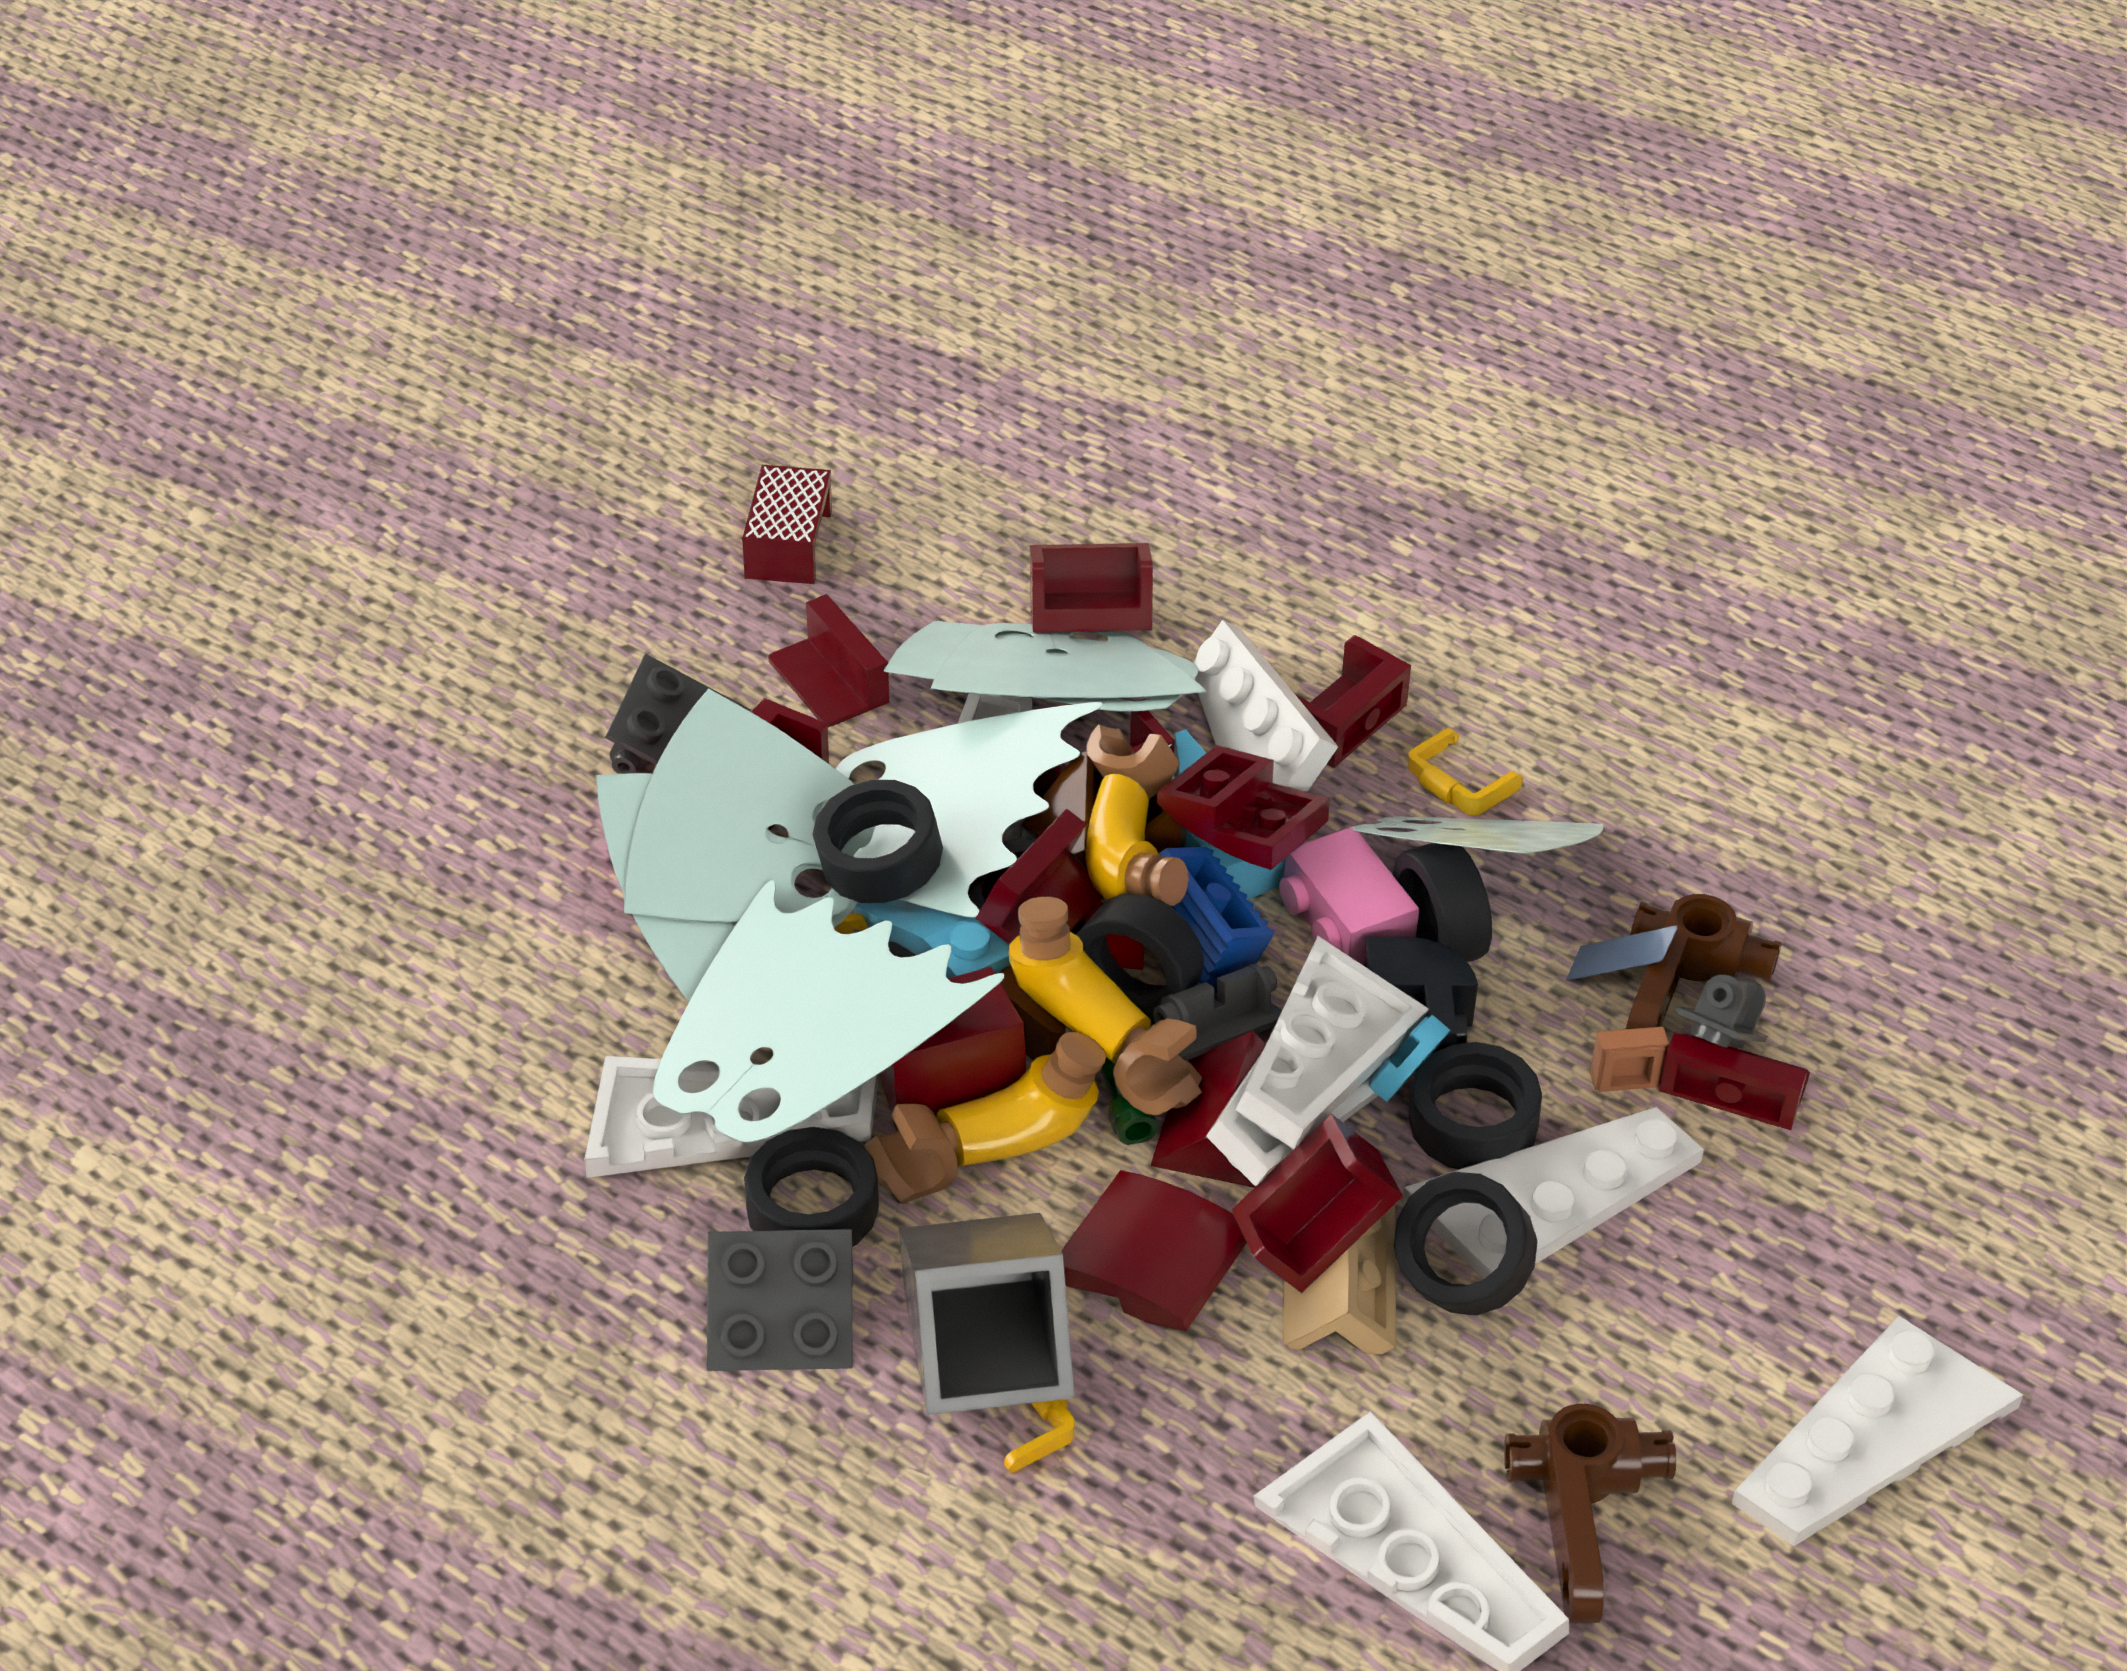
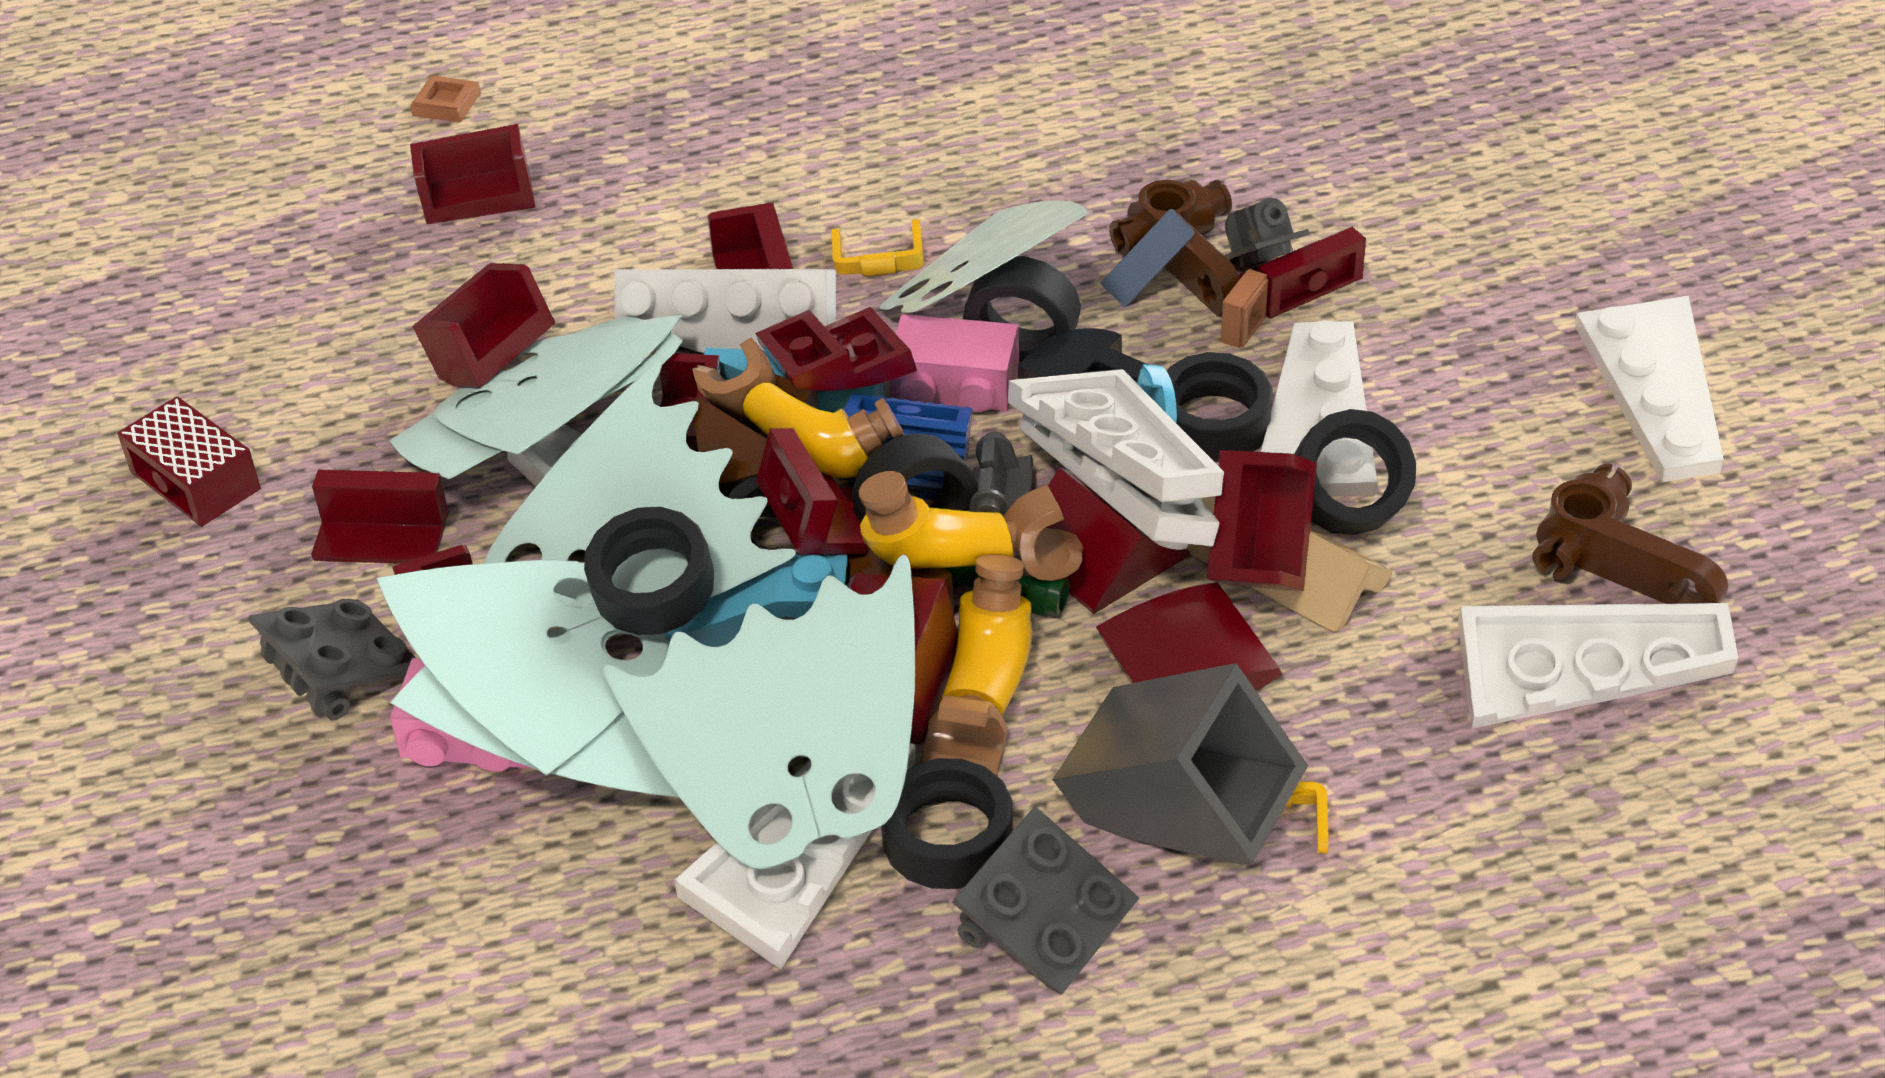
camera: 50 degrees left, 0 degrees up
(1264, 472) = (472, 174): none -> dark red panel
(1358, 402) = (445, 99): none -> nougat tile

